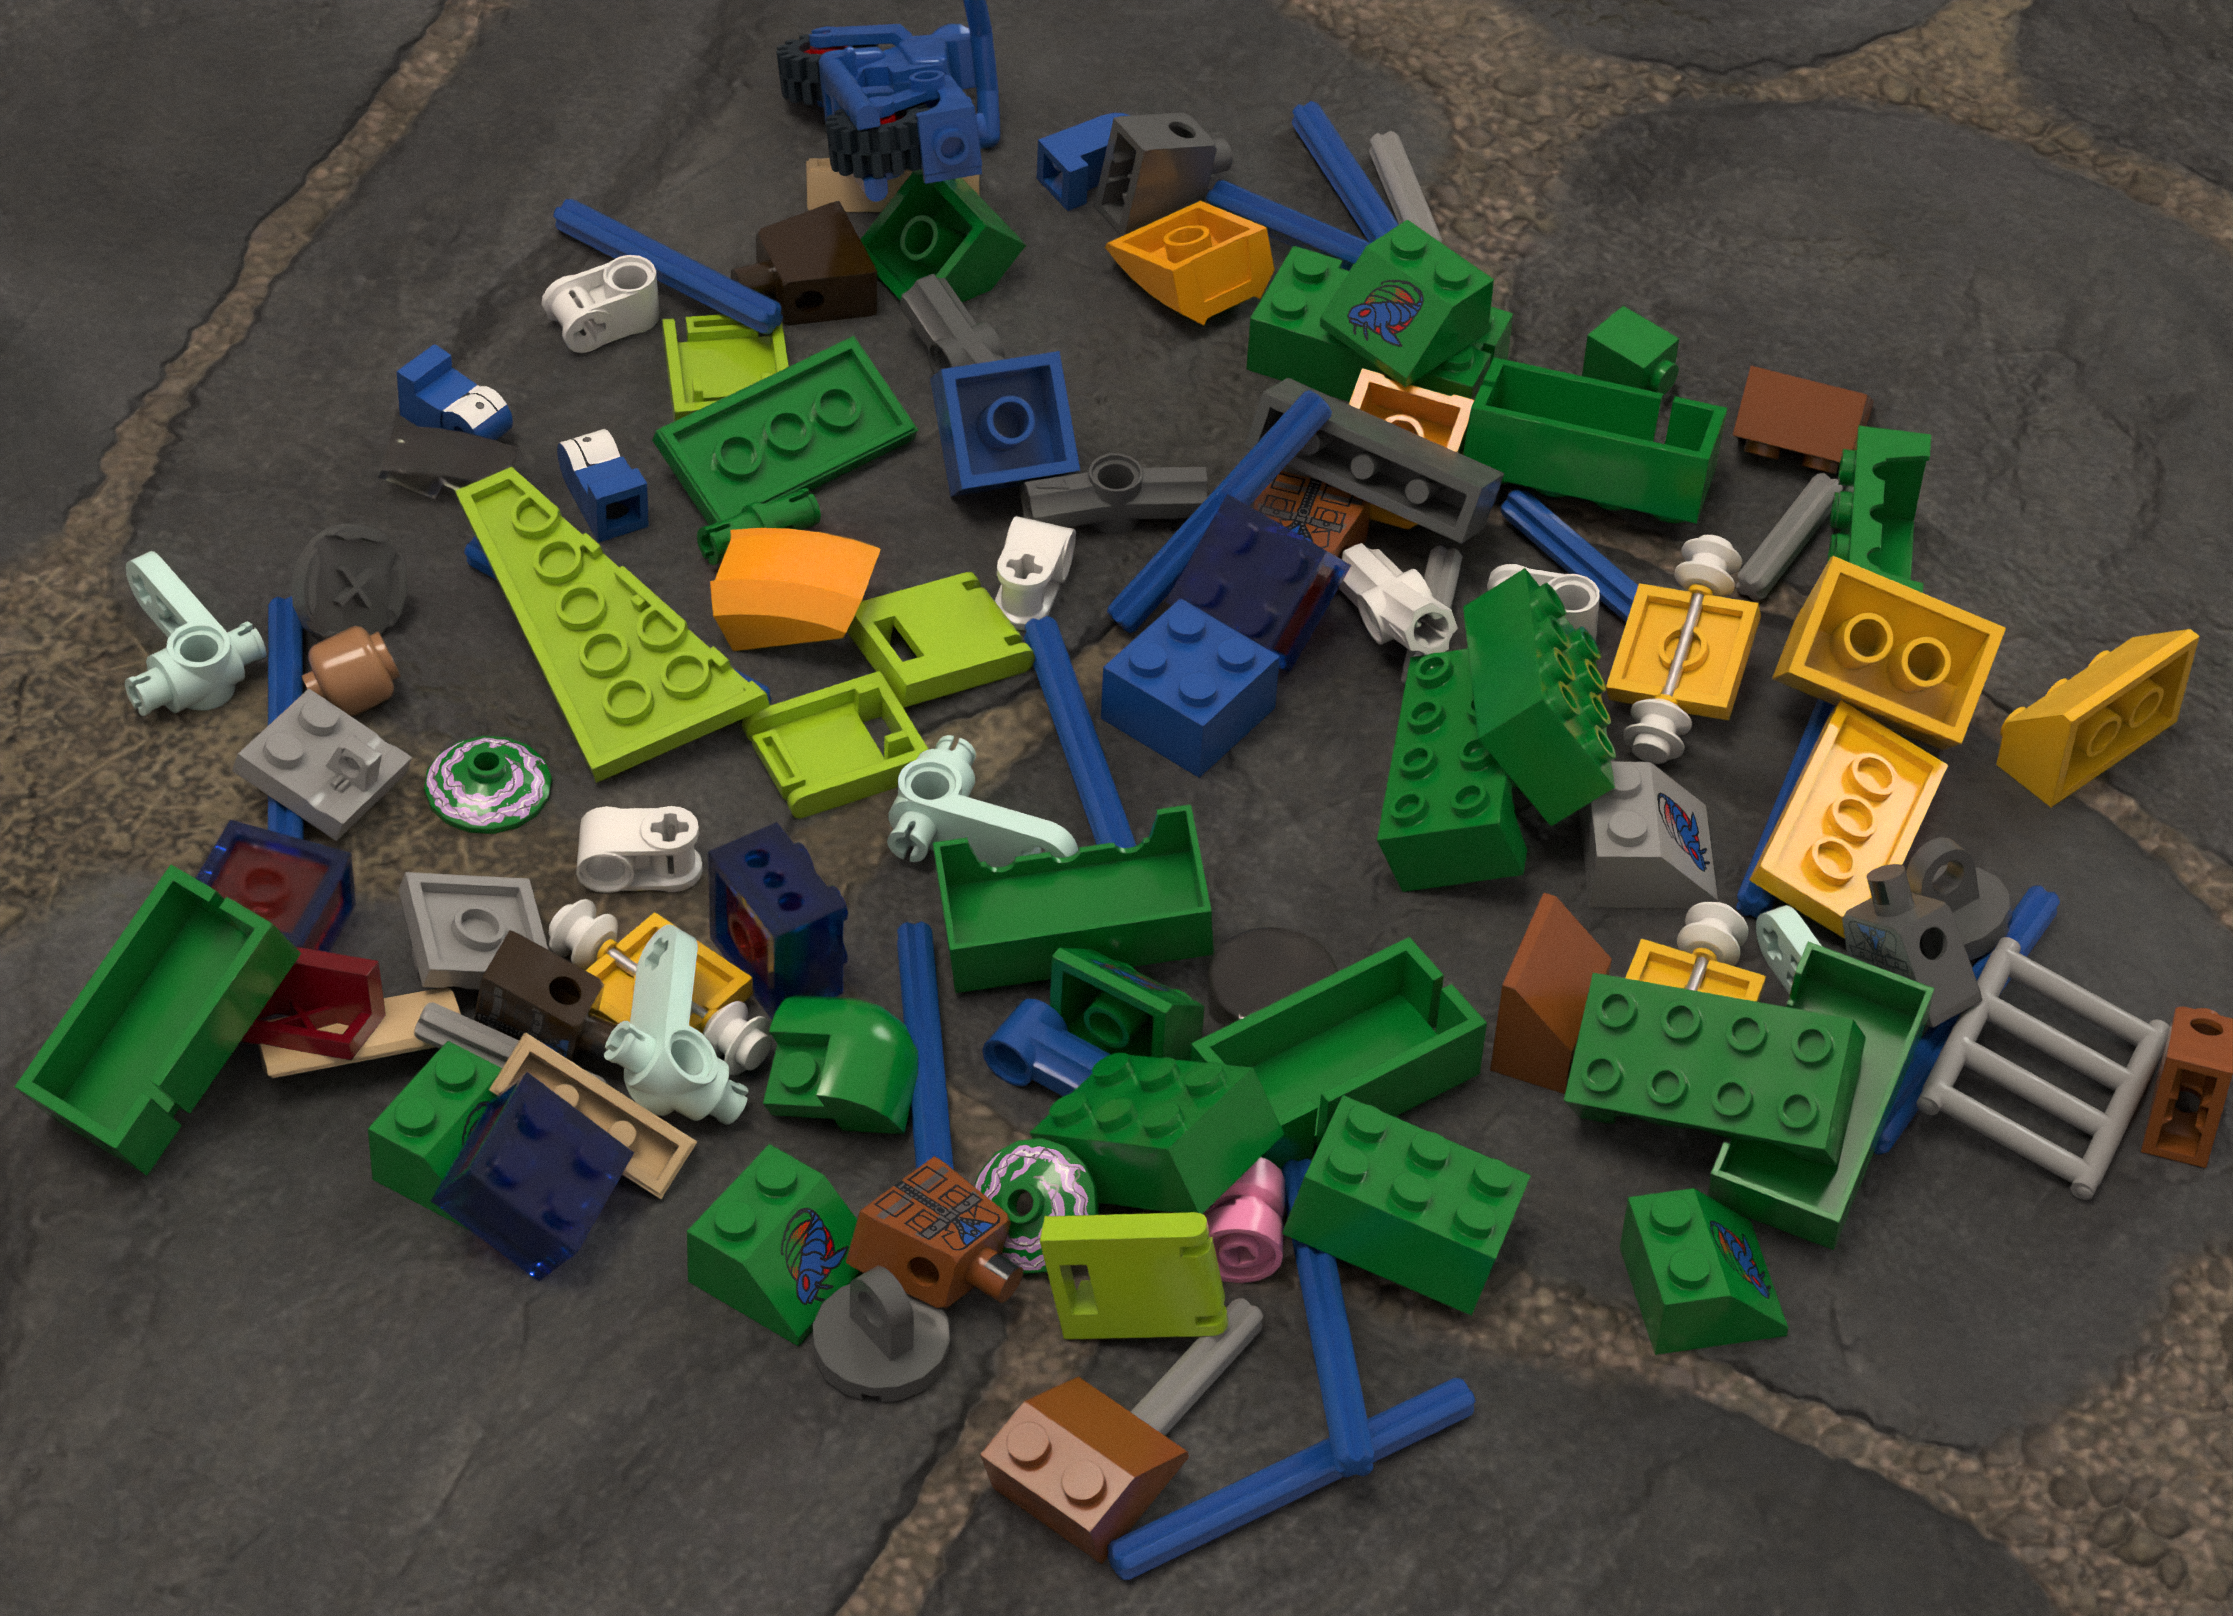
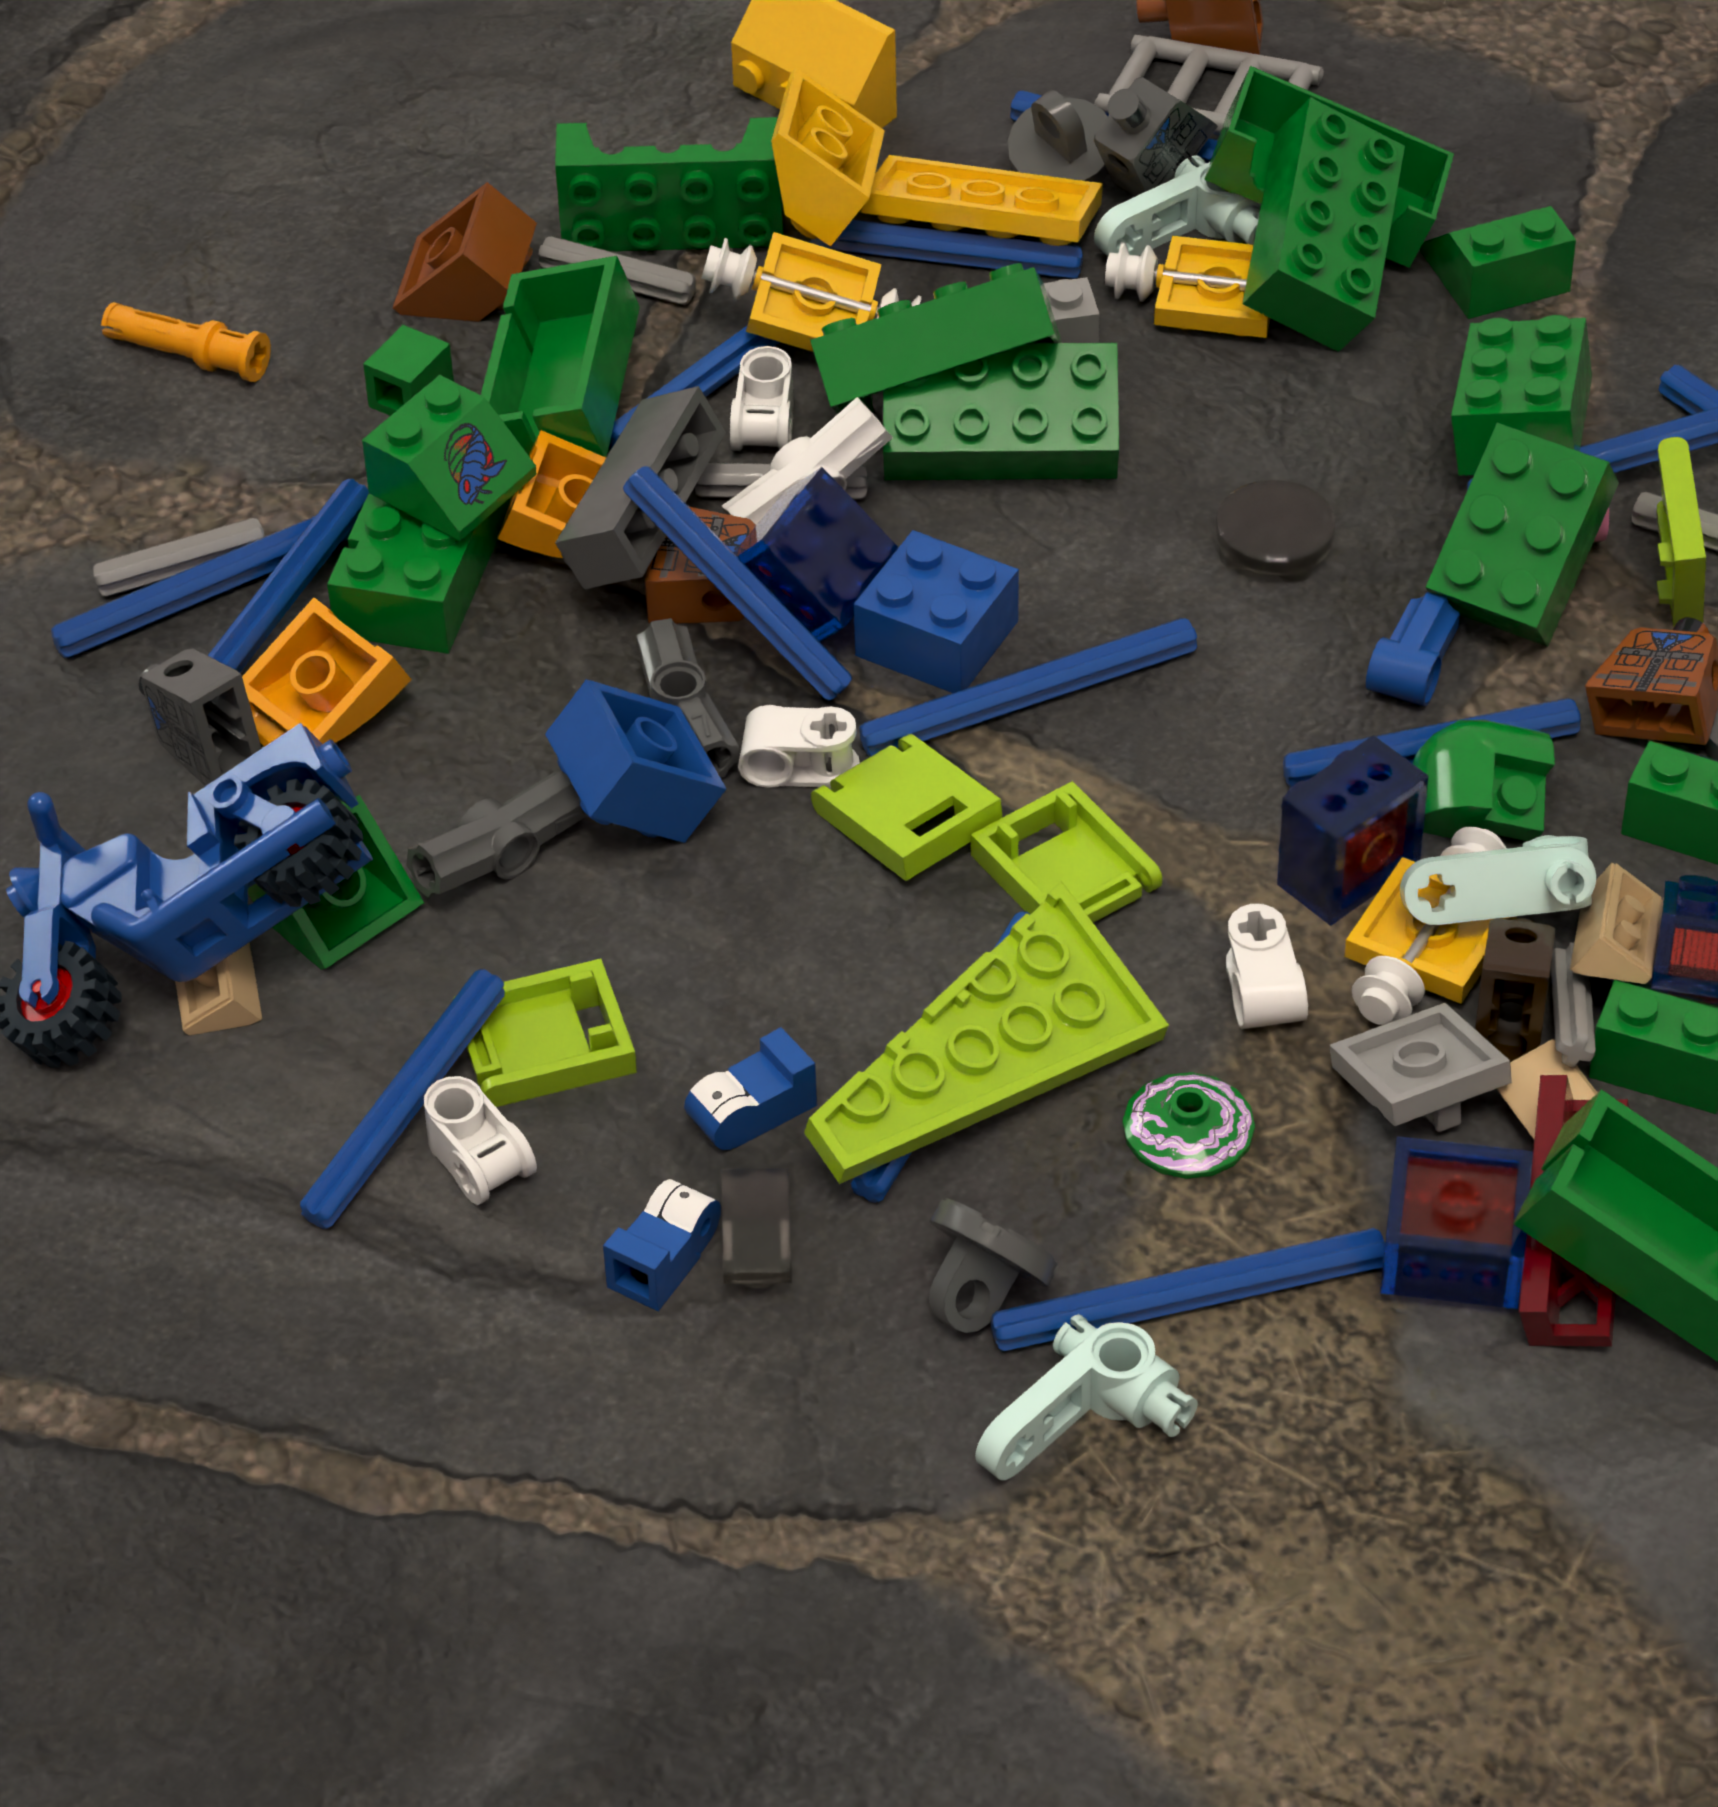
camera: 95 degrees left, 0 degrees up
(322, 764) = (1235, 1229): light grey hinge -> none
(352, 670) = (1094, 1238): medium nougat head -> none
(786, 432) = (653, 956): green tile -> none
(789, 586) = (884, 895): light orange slope -> none
(790, 512) = (785, 962): green pin -> none
(813, 268) = (380, 976): dark brown torso -> none
(937, 807) = (1138, 766): light aqua piece -> none
(1056, 1182) = (1591, 620): dish -> none
(1077, 160) = (158, 782): blue leg -> none
(1122, 902) = (1254, 635): green piece -> none
(1122, 1008) = (1362, 594): green slope -> none
(1354, 1037) = (1365, 454): green piece -> none
(1546, 997) = (1254, 352): dark orange slope -> none
(1706, 229) = (207, 344): none -> light orange pin

